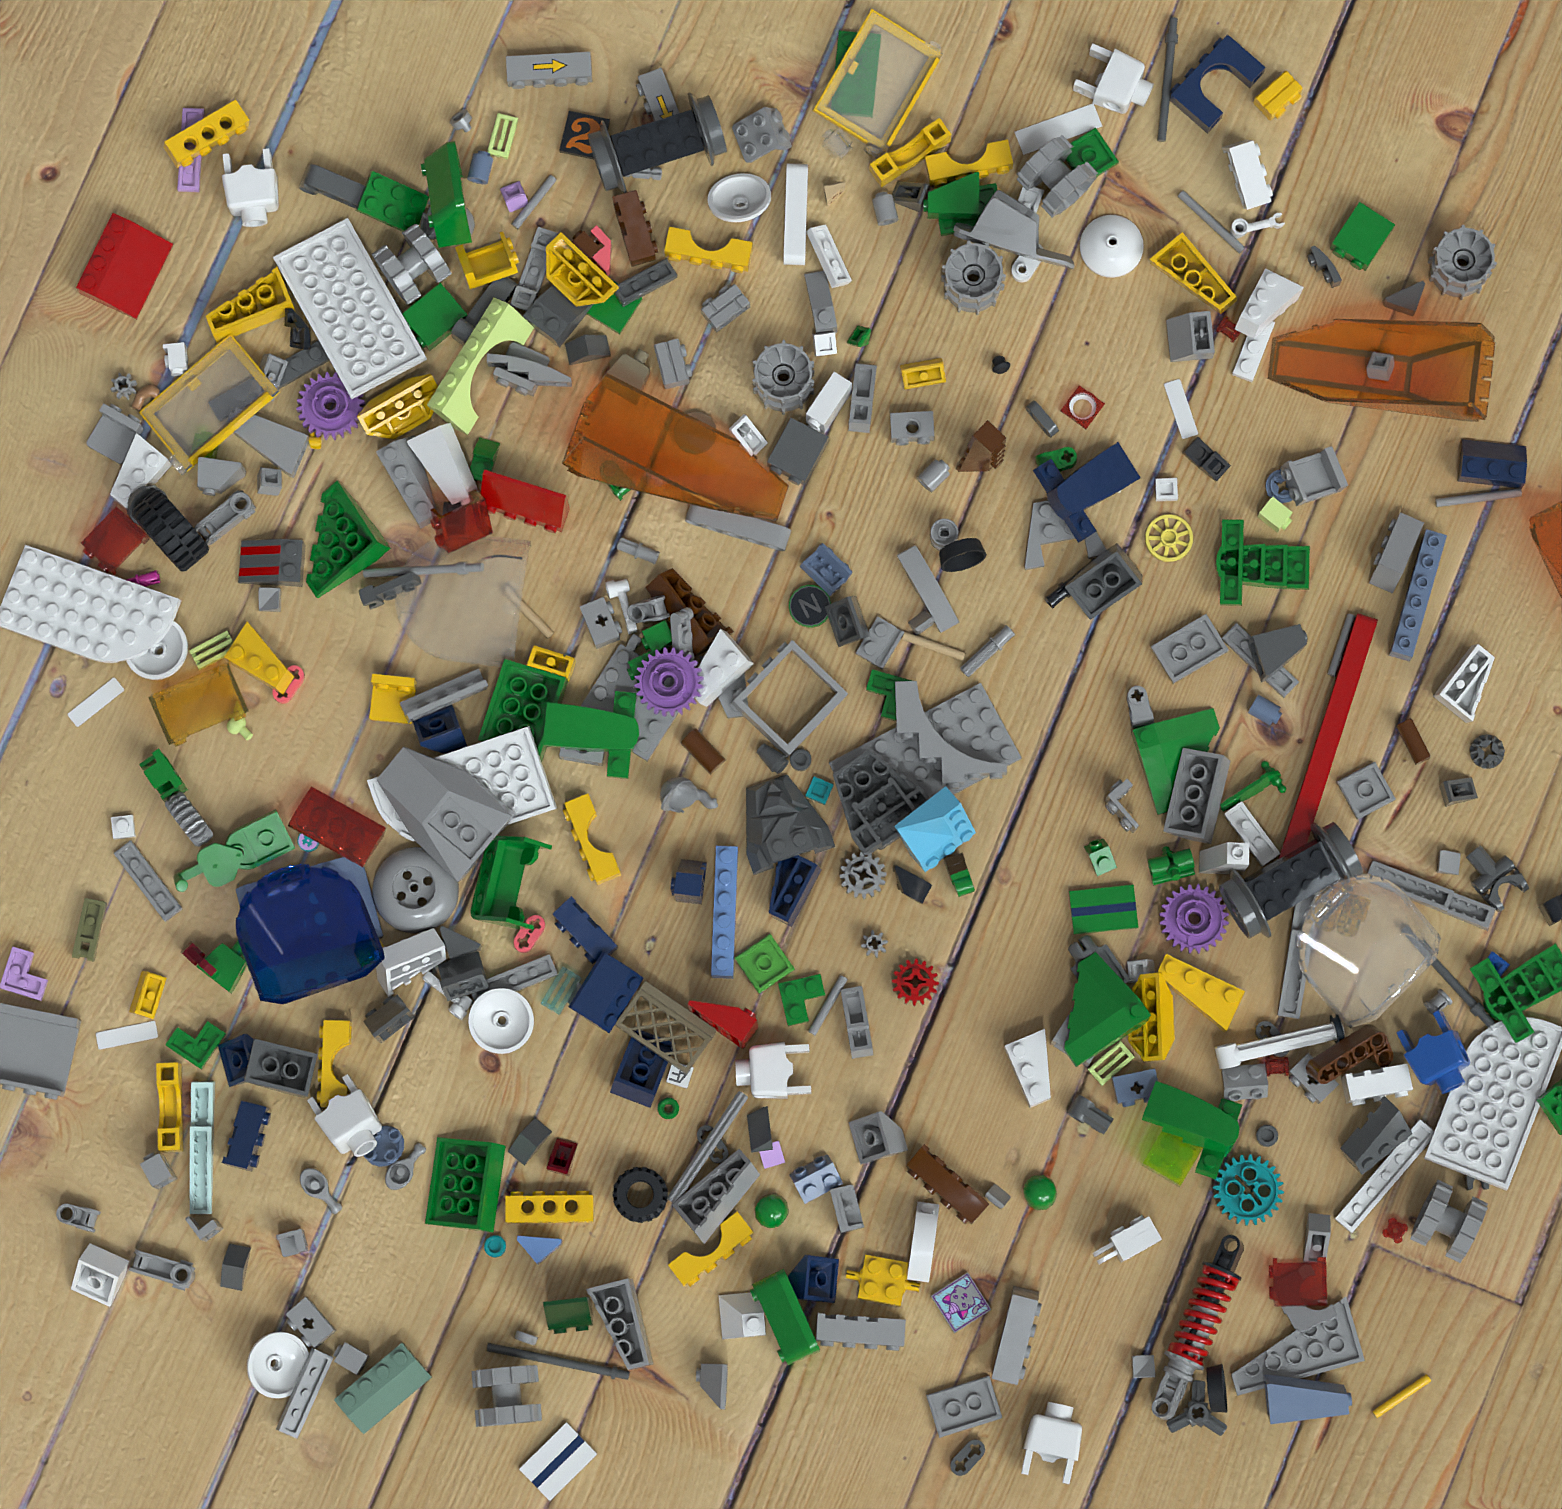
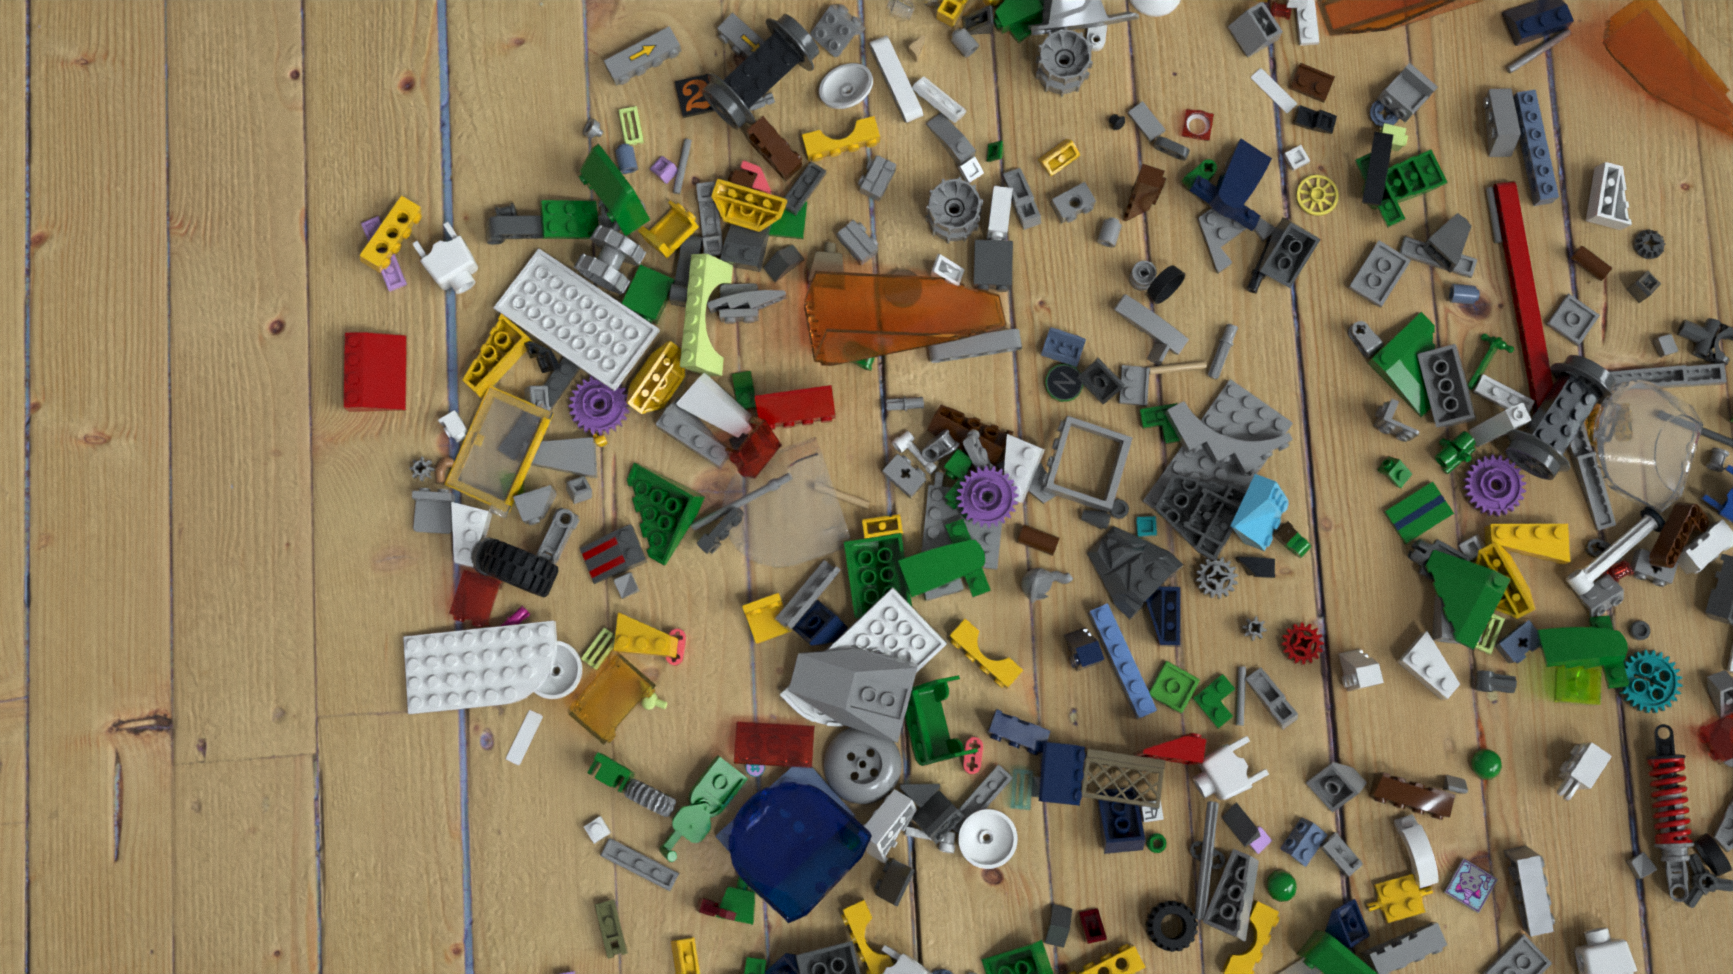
camera: 30 degrees left, 0 degrees up
(334, 165) = (506, 211): none -> dark grey bush
(956, 1035) = (1359, 670): none -> white wedge
(1031, 379) = (1146, 121): none -> light grey tile
(1224, 419) = (1312, 82): none -> reddish brown plate
(1238, 538) = (1377, 168): none -> black slope

